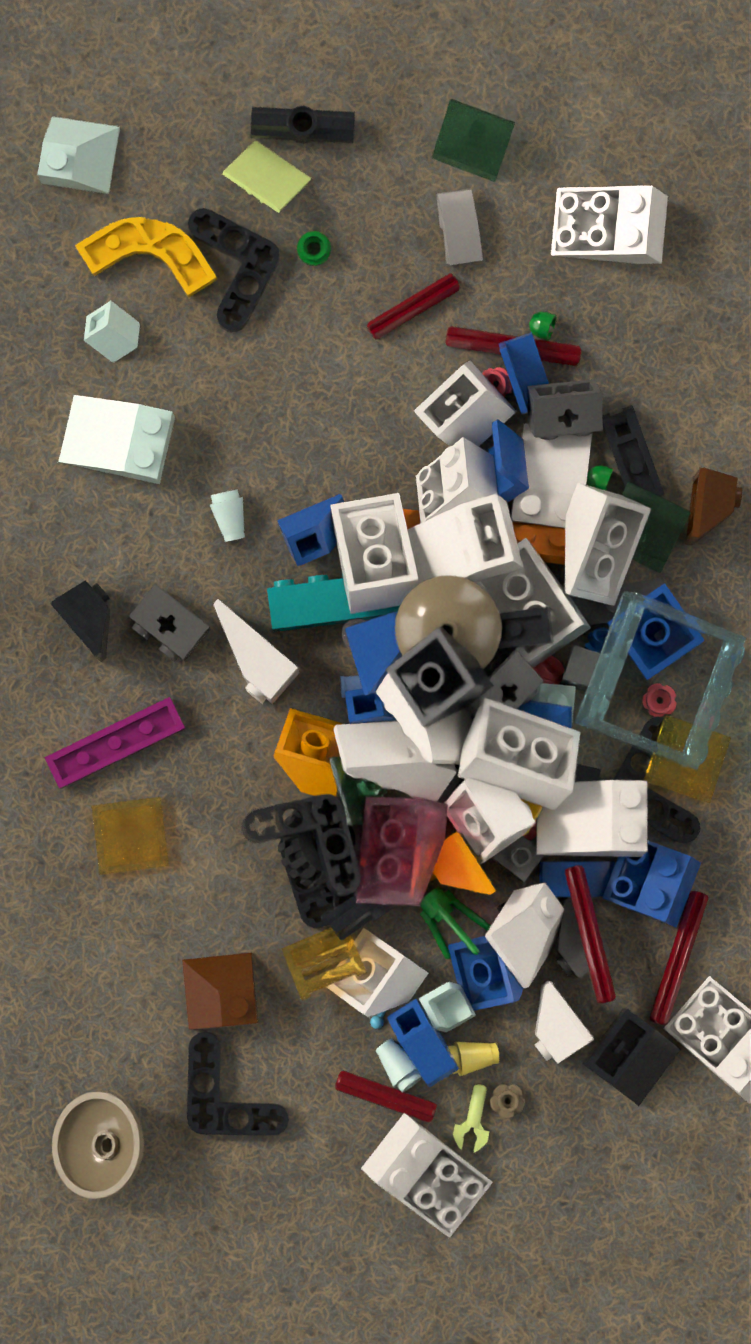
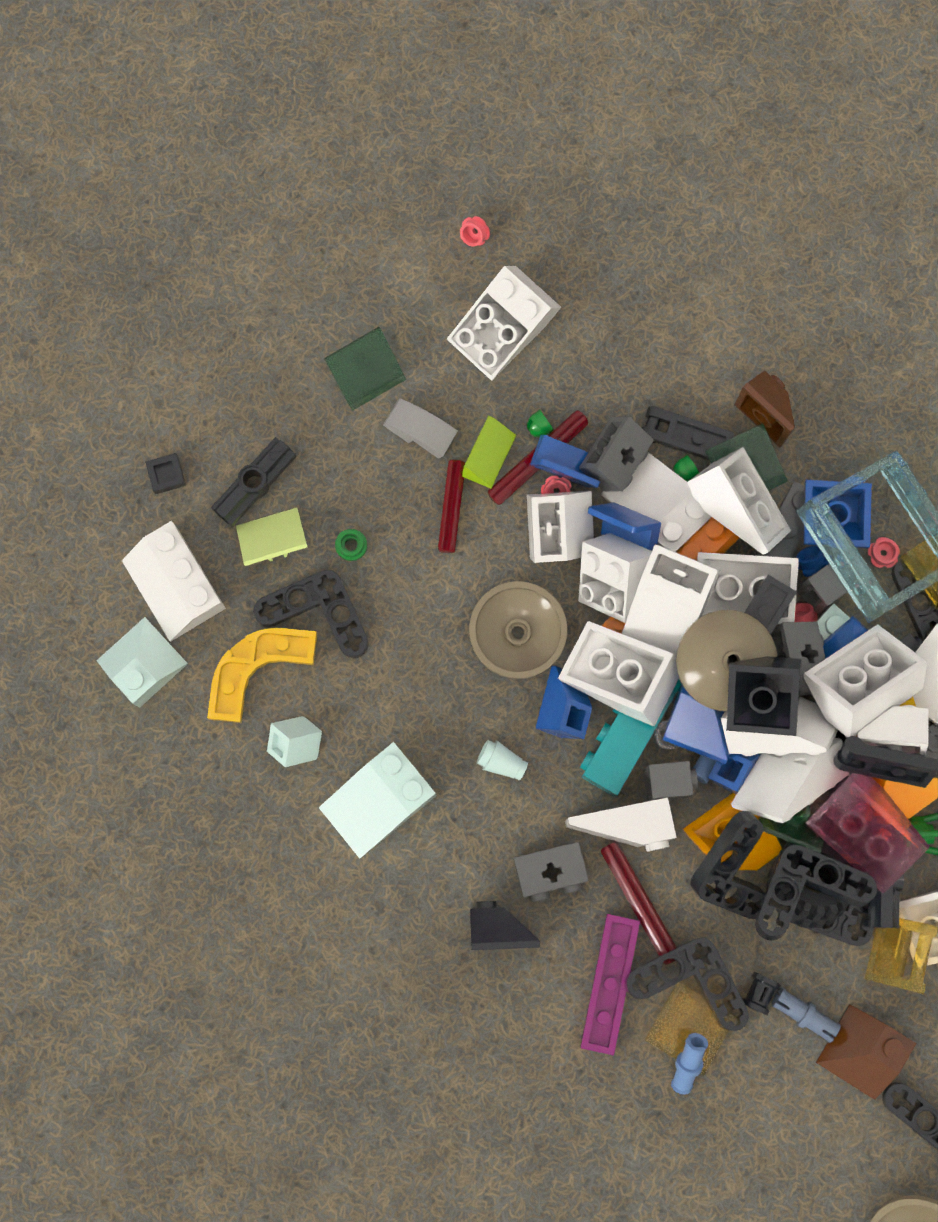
camera: 50 degrees left, 5 degrees down
(98, 852) = (689, 1063): none -> medium blue pin
(166, 126) = (172, 581): none -> white slope
(177, 795) = (691, 967): none -> black beam
(191, 867) = (761, 993): none -> black bush
(201, 718) = (638, 899): none -> dark red axle
(213, 921) = (806, 1015): none -> sand blue pin
(252, 46) = (165, 473): none -> black plate
(272, 761) = (723, 873): none -> black beam
(317, 663) = (670, 781): none -> dark grey brick
(347, 417) = (522, 607): none -> dark tan dish
(461, 820) = (885, 763): none -> black plate
(483, 301) = (489, 453): none -> lime slope
(671, 137) = (468, 233): none -> coral plate

